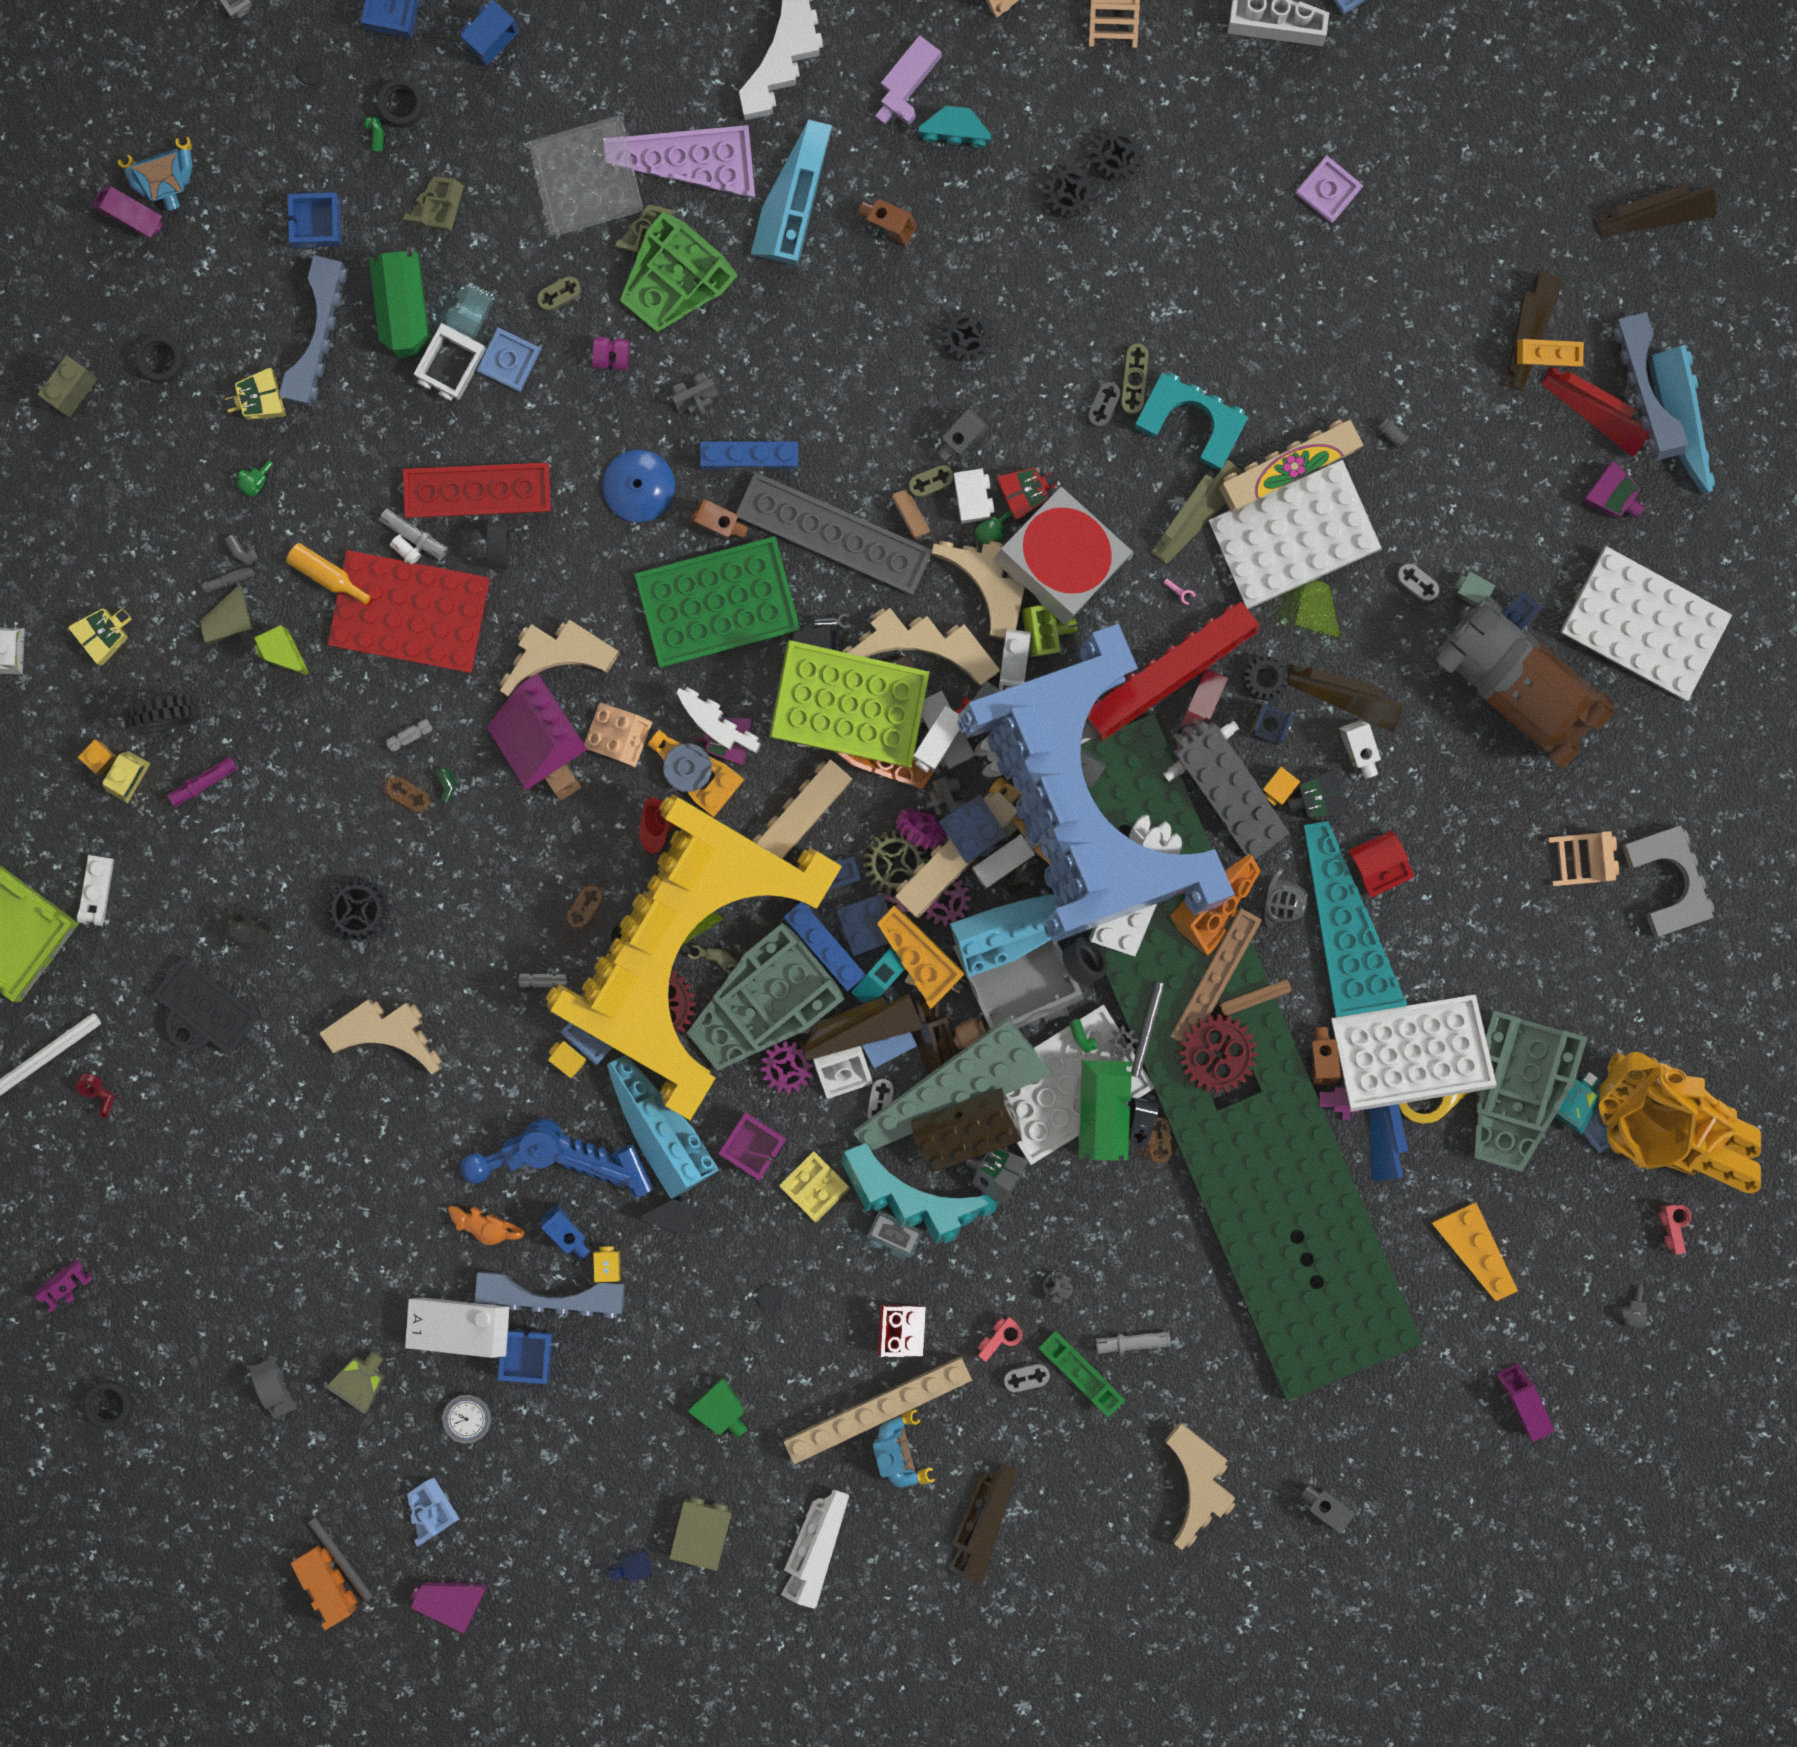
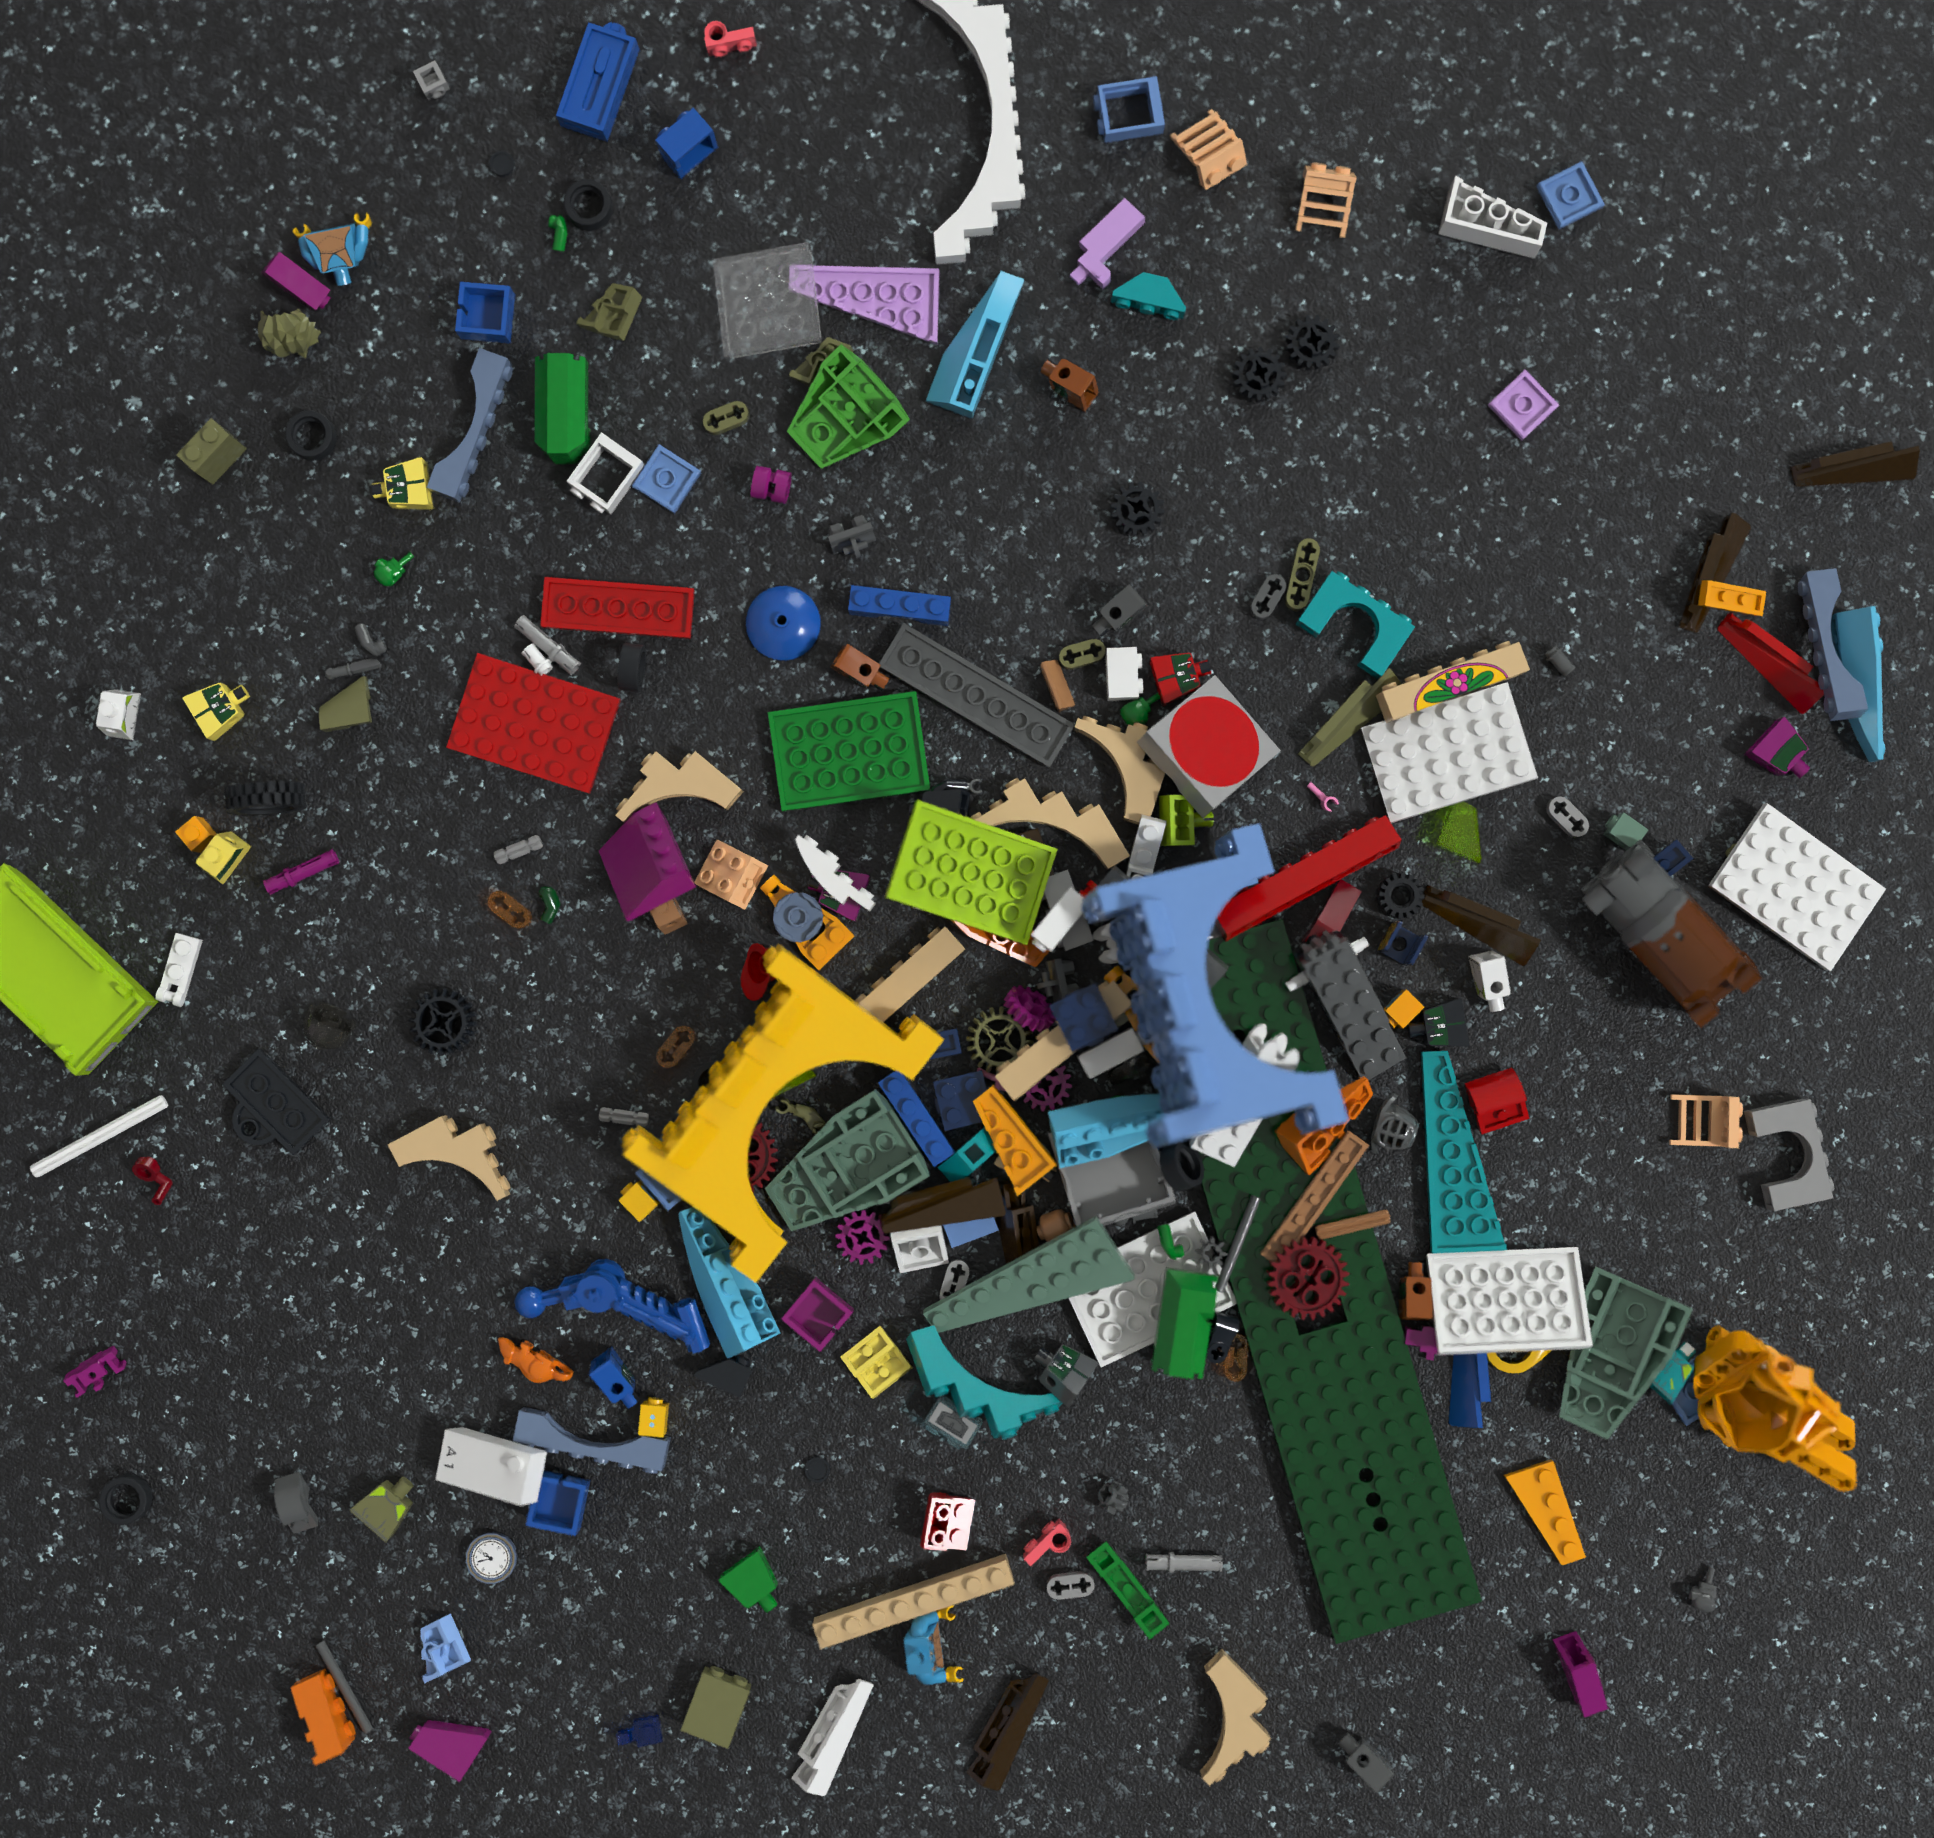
camera: 10 degrees right, 0 degrees up
(125, 263) = (287, 333): none -> olive hair
(280, 650) = (397, 746): lime slope -> none
(323, 572) = (450, 672): light orange piece -> none
(470, 310) = (633, 423): clear light blue brick -> none
(966, 1130) = (1039, 1326): dark brown brick -> none
(1674, 1238) = (1753, 1521): coral plate -> none

